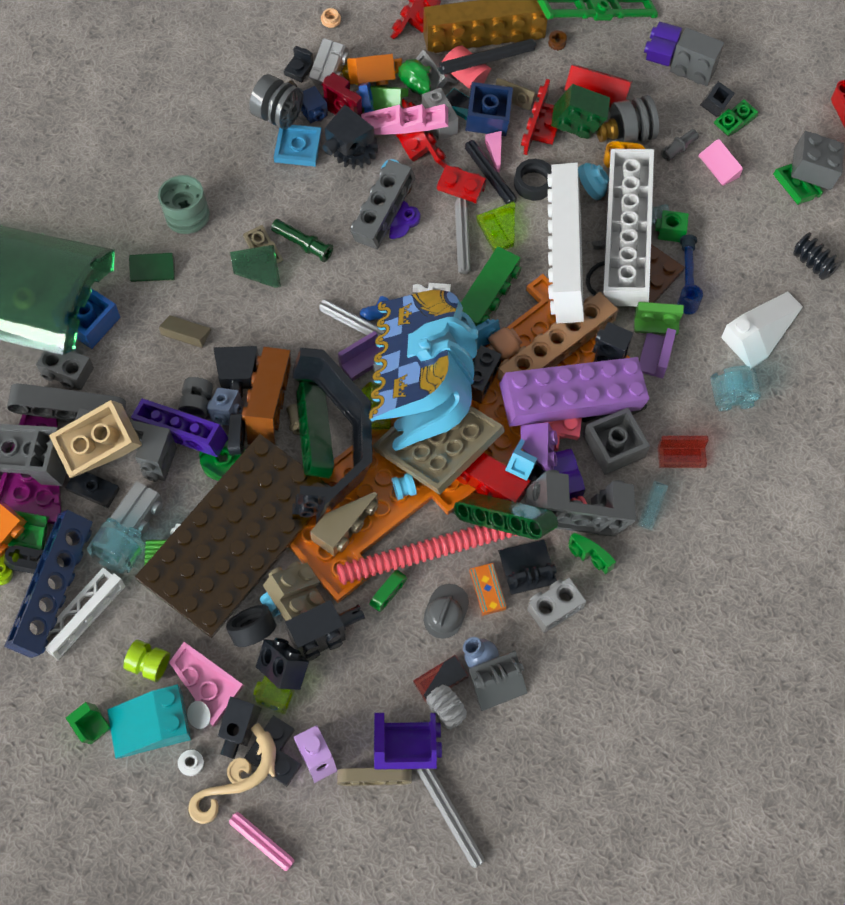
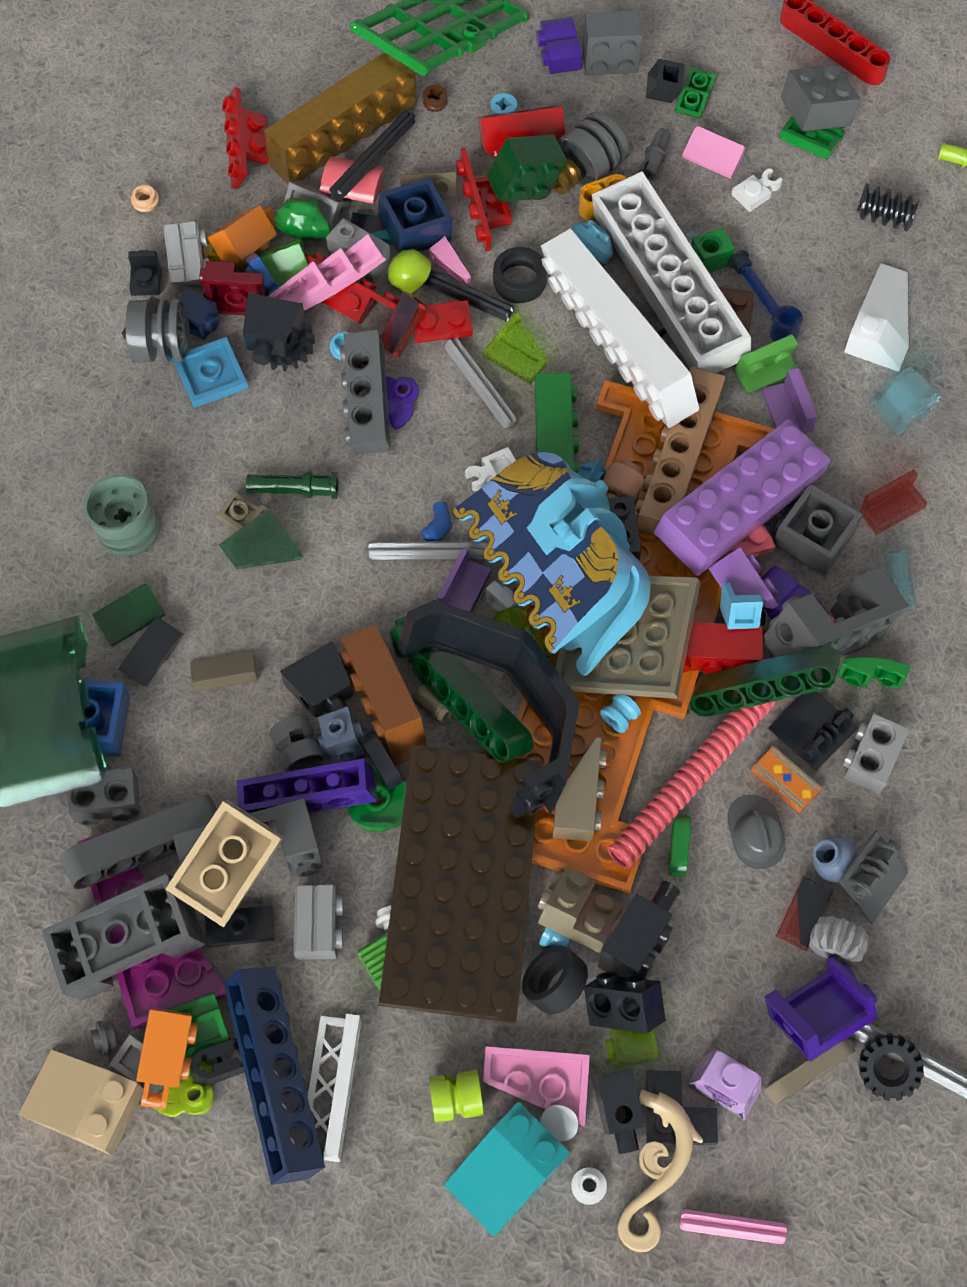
camera: 30 degrees left, 0 degrees up
(88, 723) = (436, 1214): green panel -> none
(116, 546) = (326, 979): clear light blue brick -> none
(148, 295) = (150, 651): none -> black slope
(434, 173) = (402, 323): none -> tile
(440, 804) = (891, 1088): none -> black tyre
(463, 141) = (409, 270): none -> lime hair
(597, 63) = (503, 103): none -> medium azure wheel
(612, 343) = (747, 421): black brick -> none
(733, 202) = (756, 191): none -> white plate

